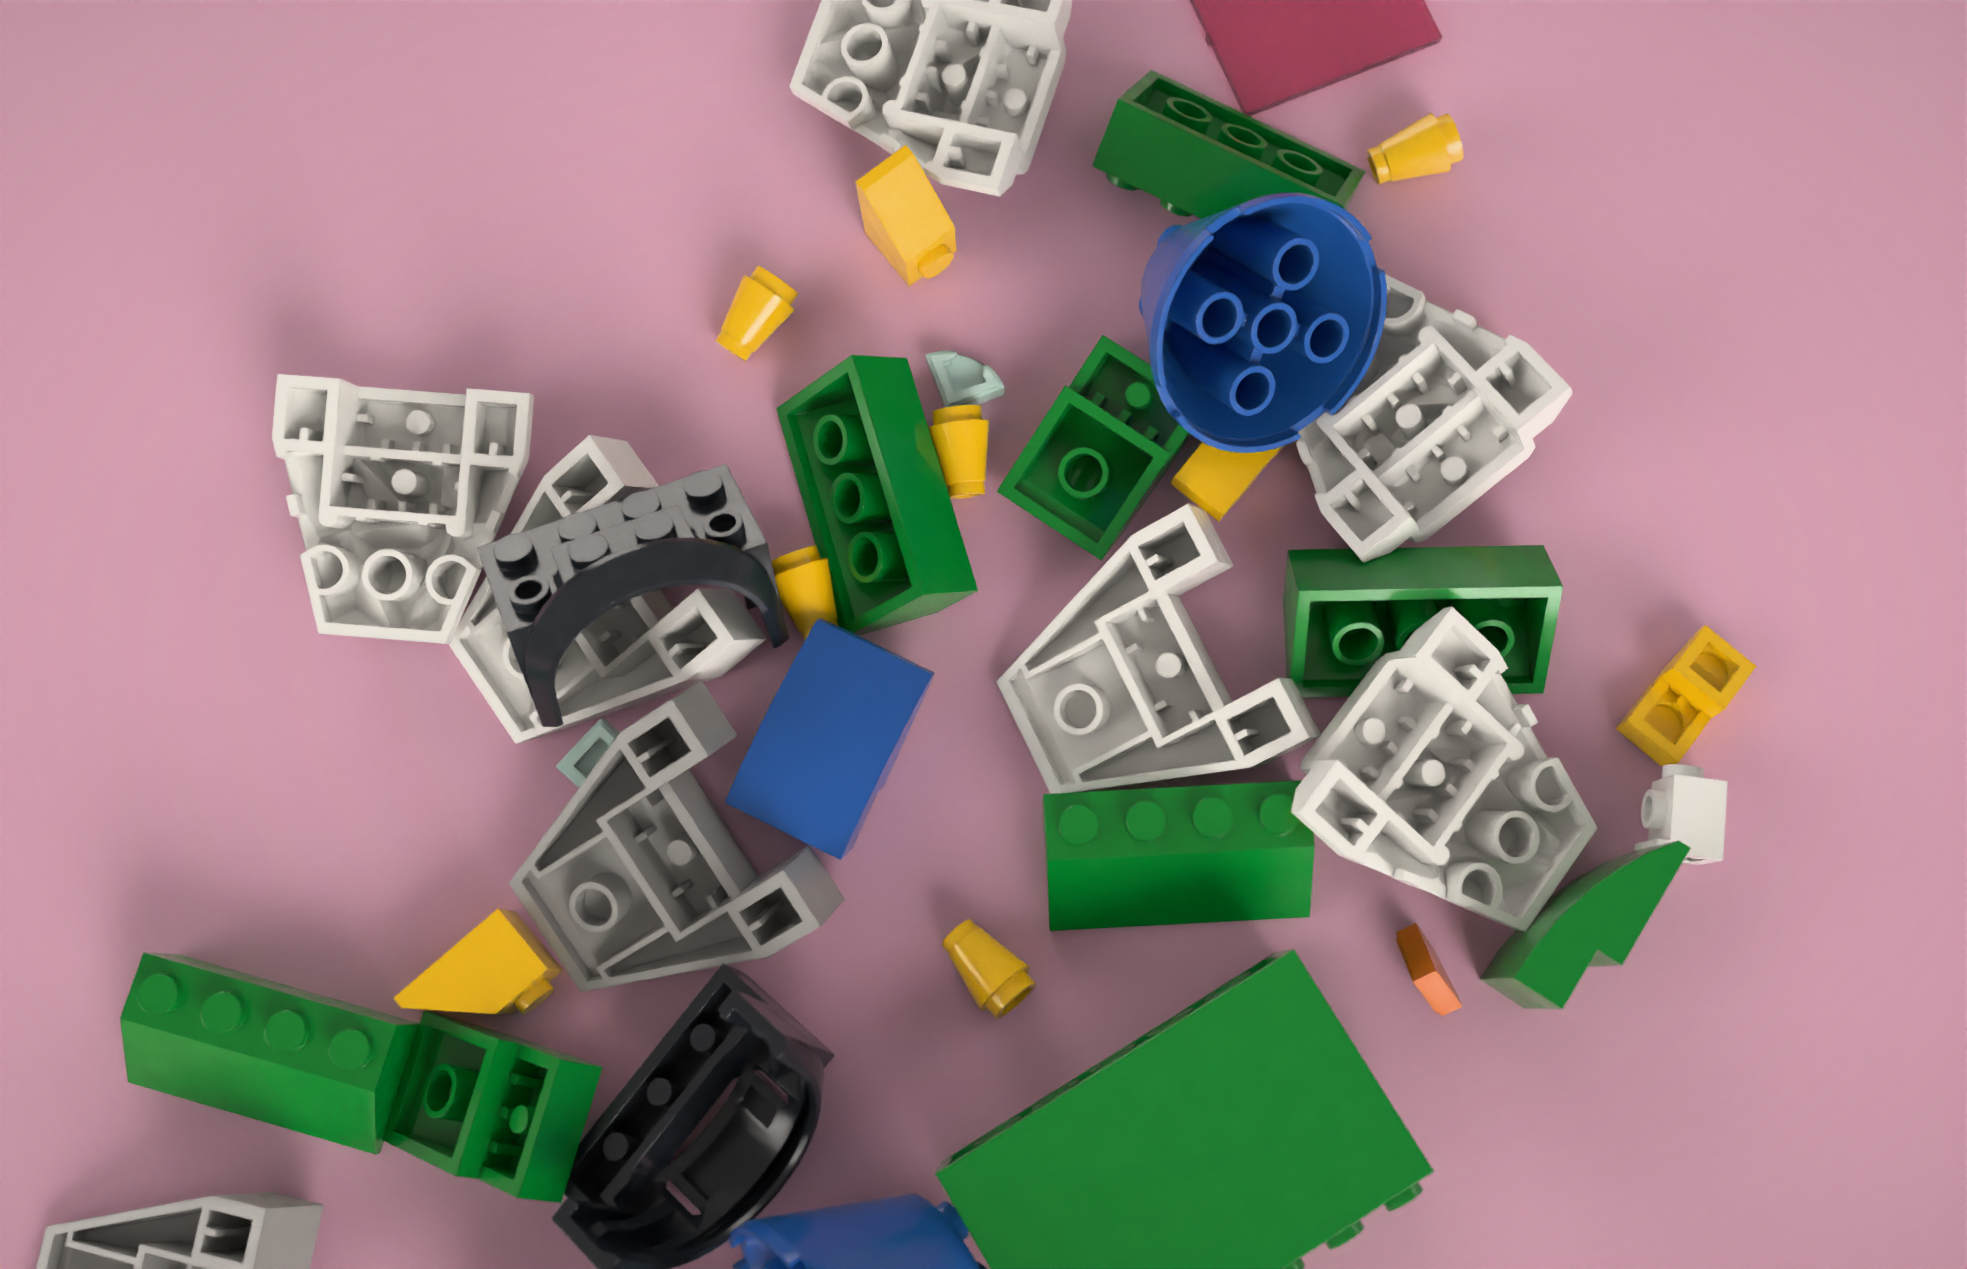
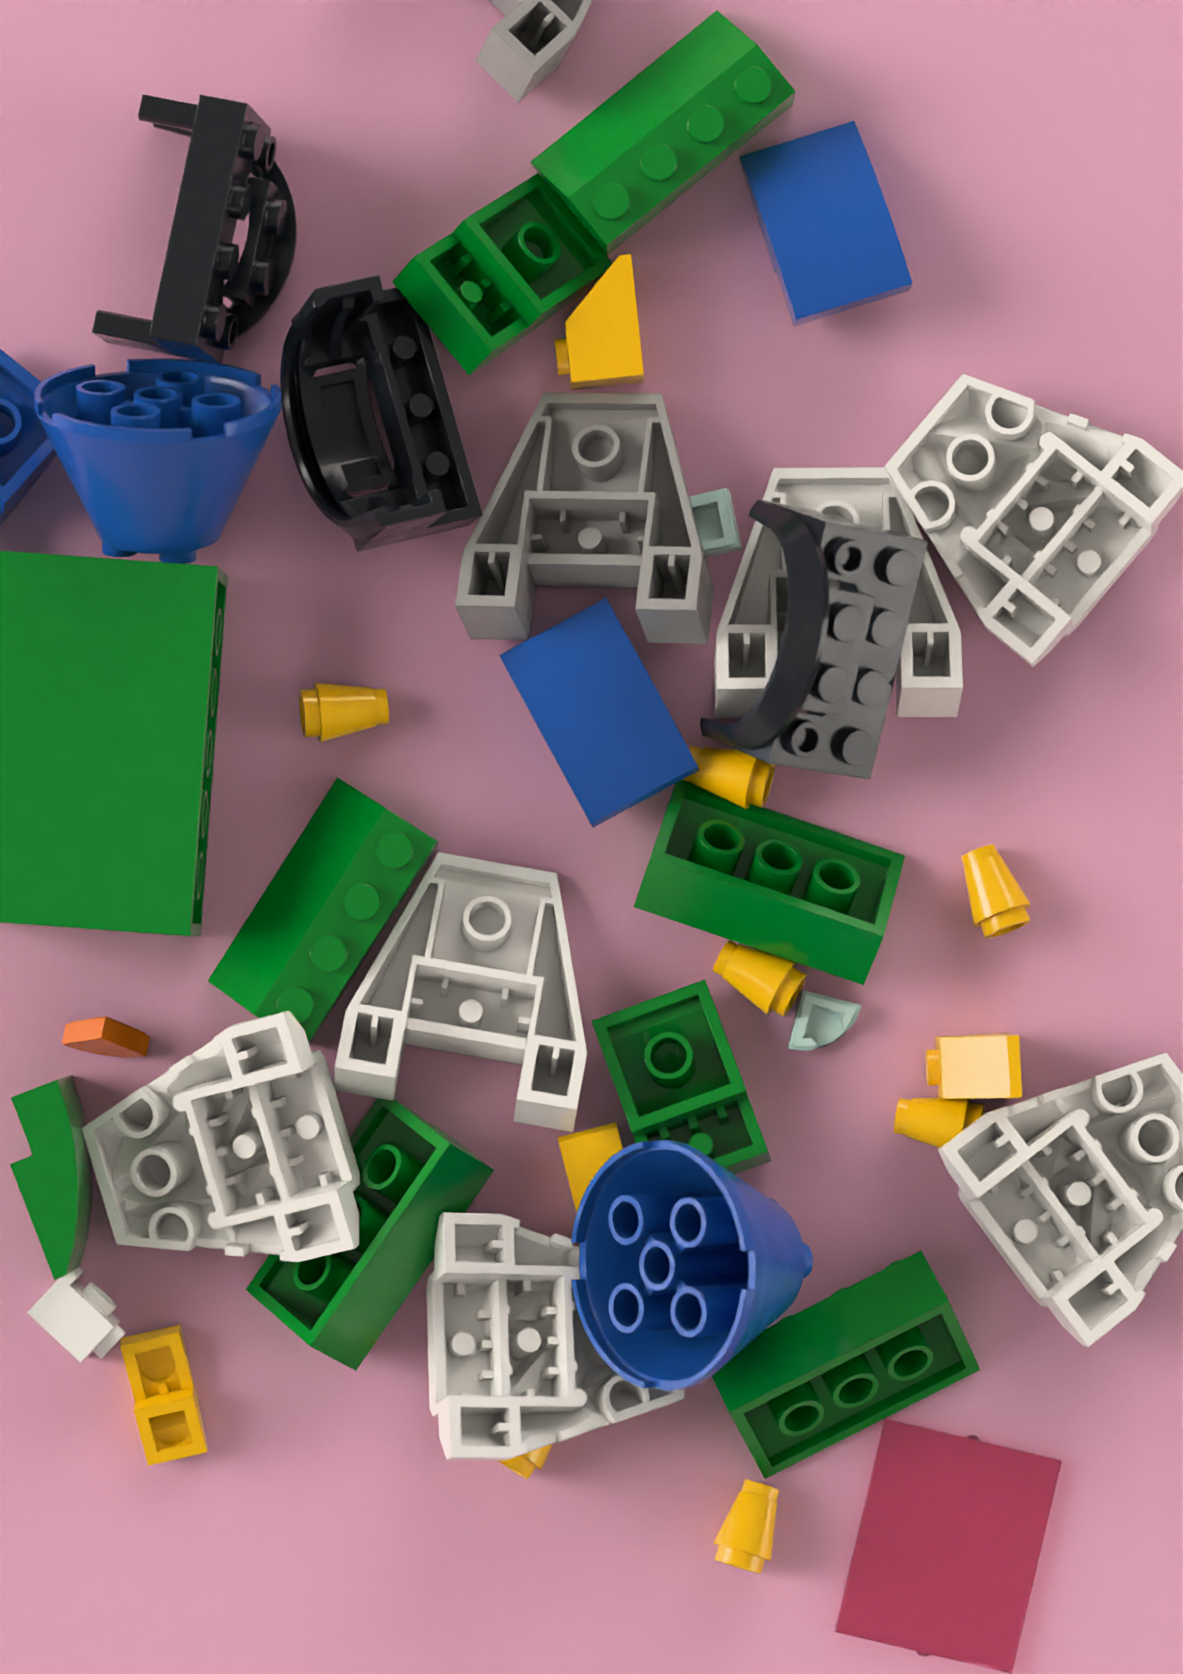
camera: 120 degrees right, 10 degrees up
(261, 845) = (825, 223): none -> blue slope
(977, 228) = (935, 1119): none -> yellow cone

